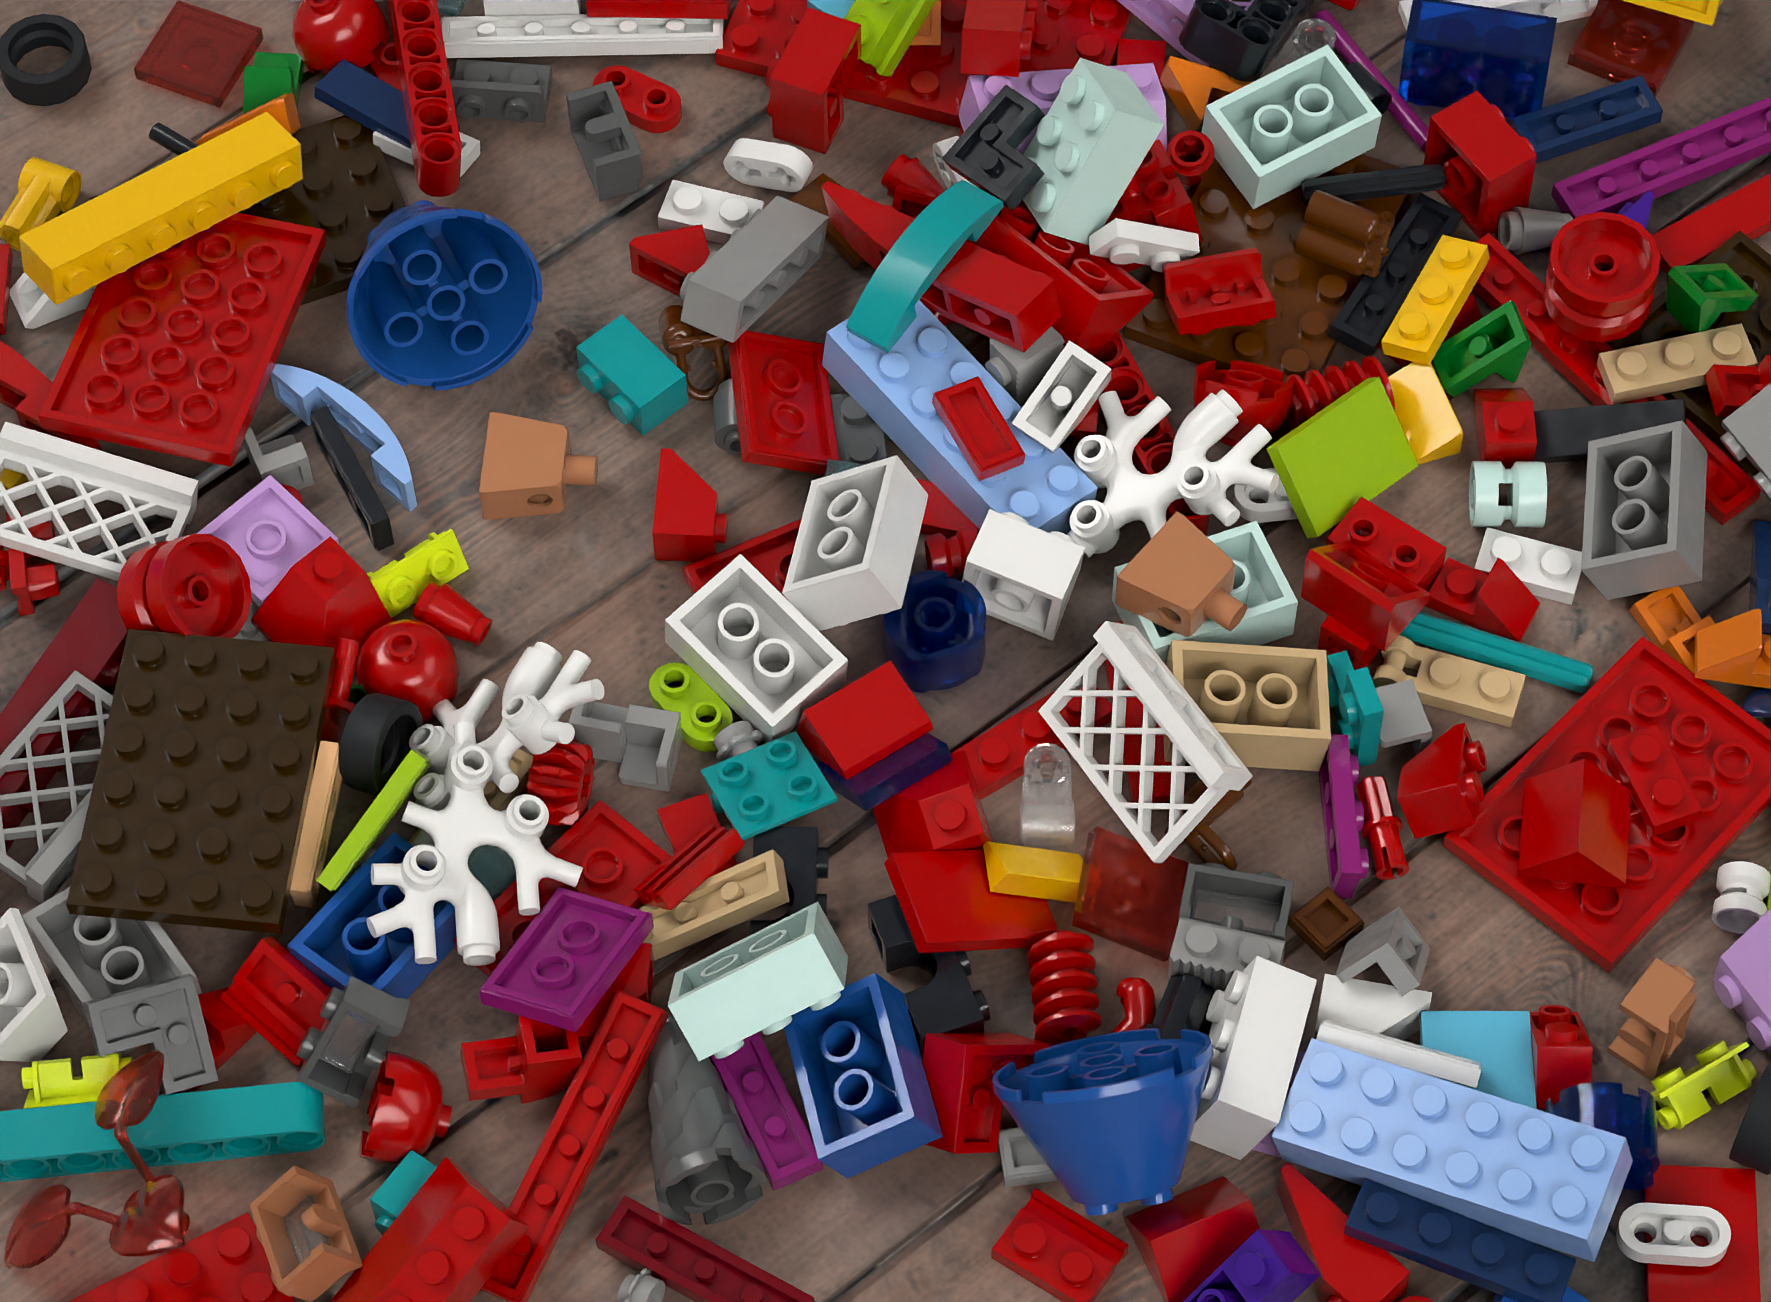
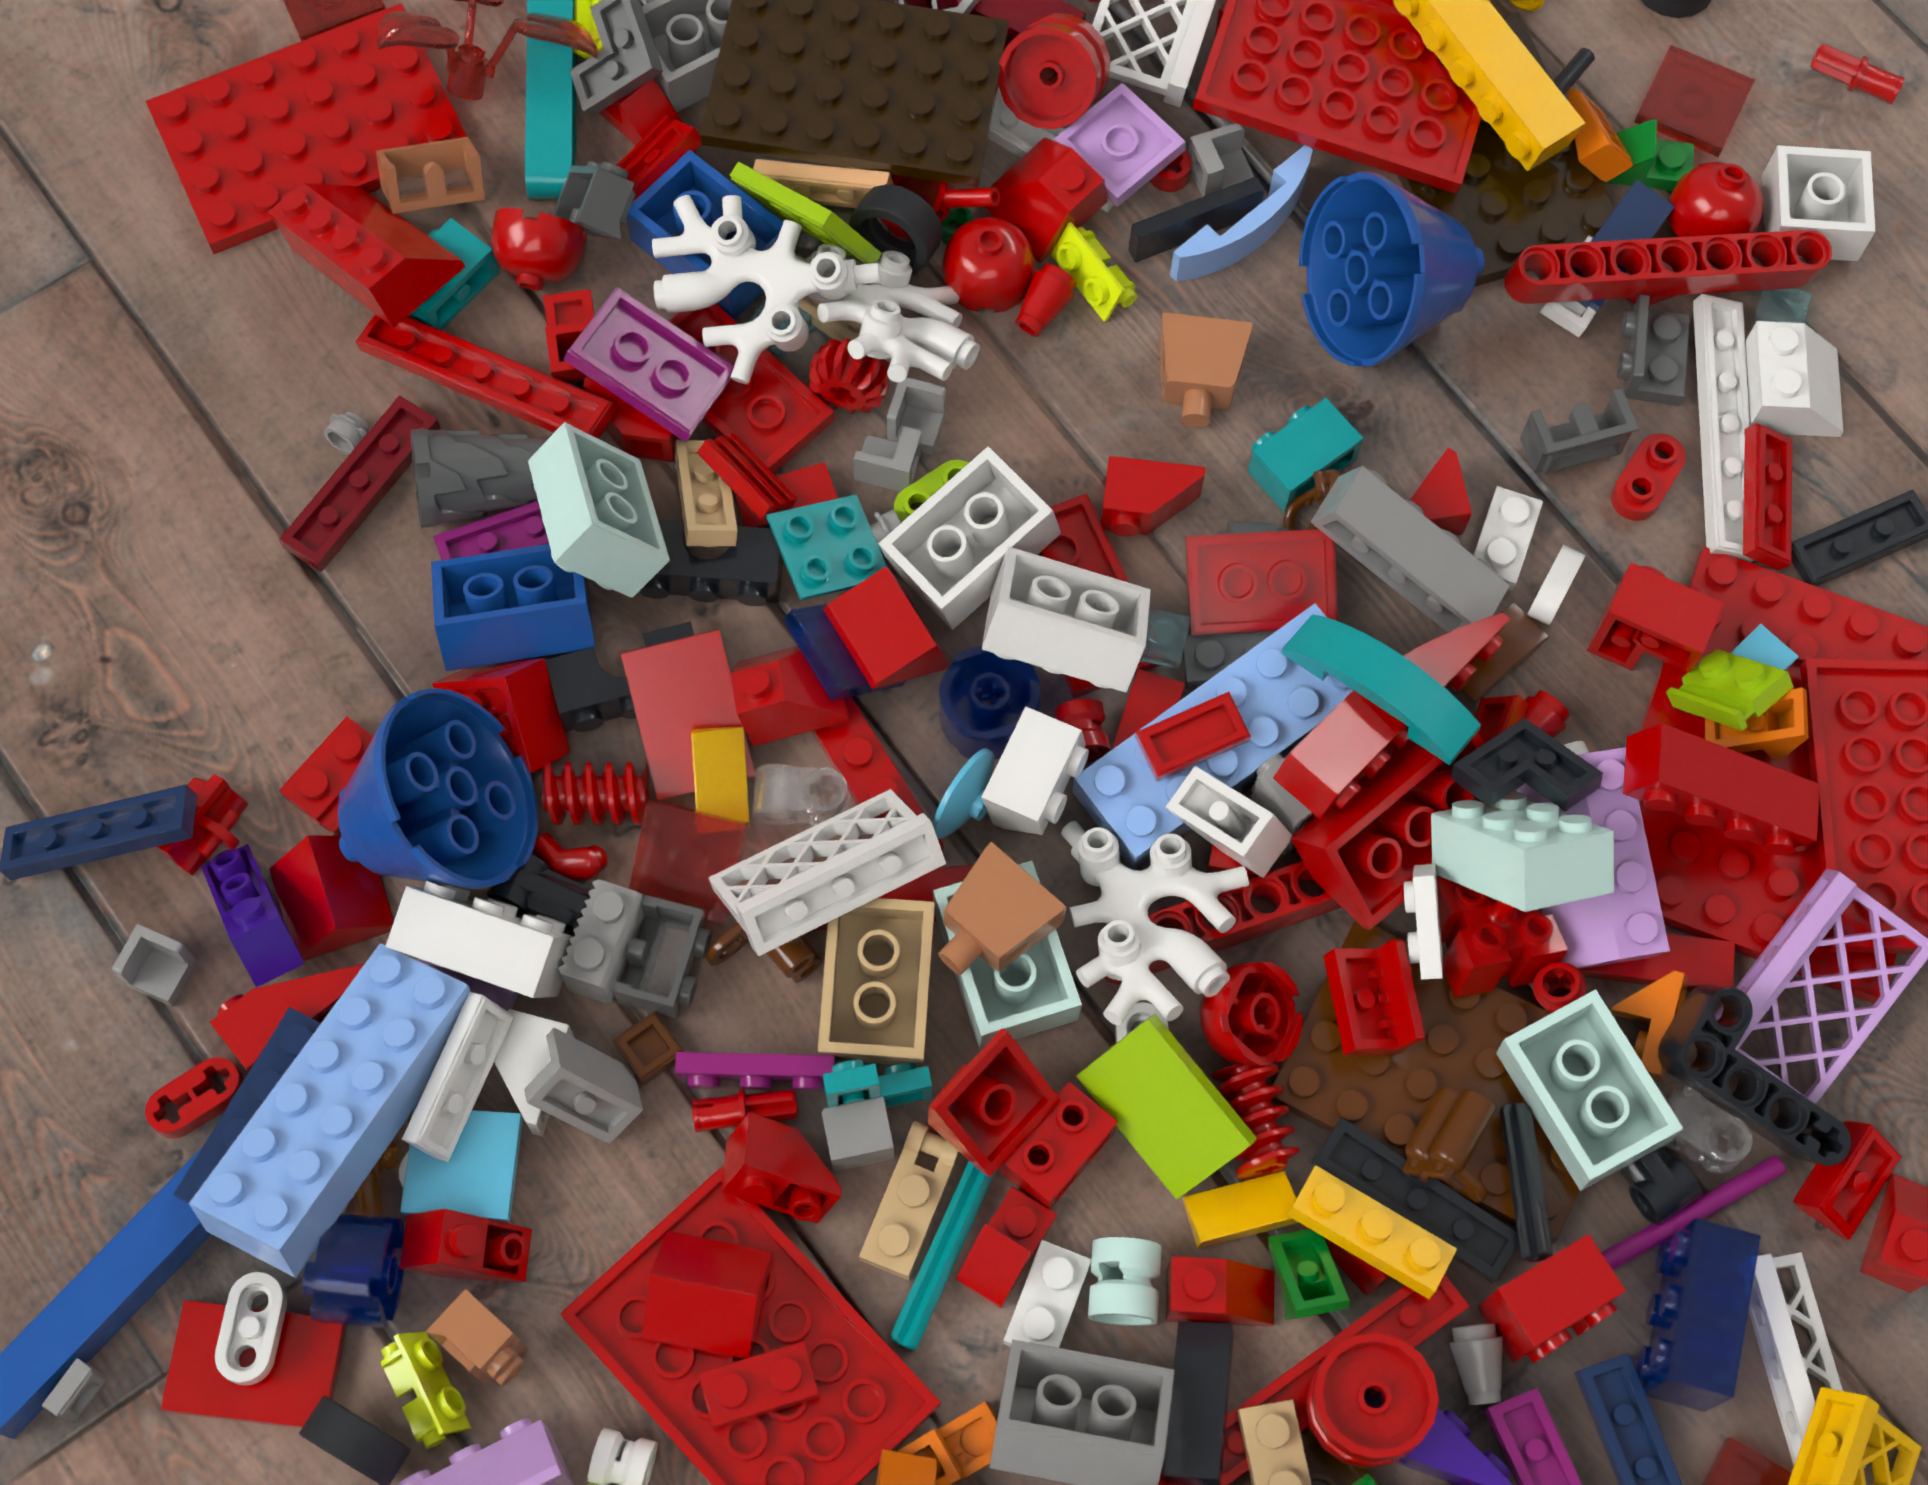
camera: 90 degrees right, 10 degrees up
(1040, 639) = (964, 795): none -> medium azure dish

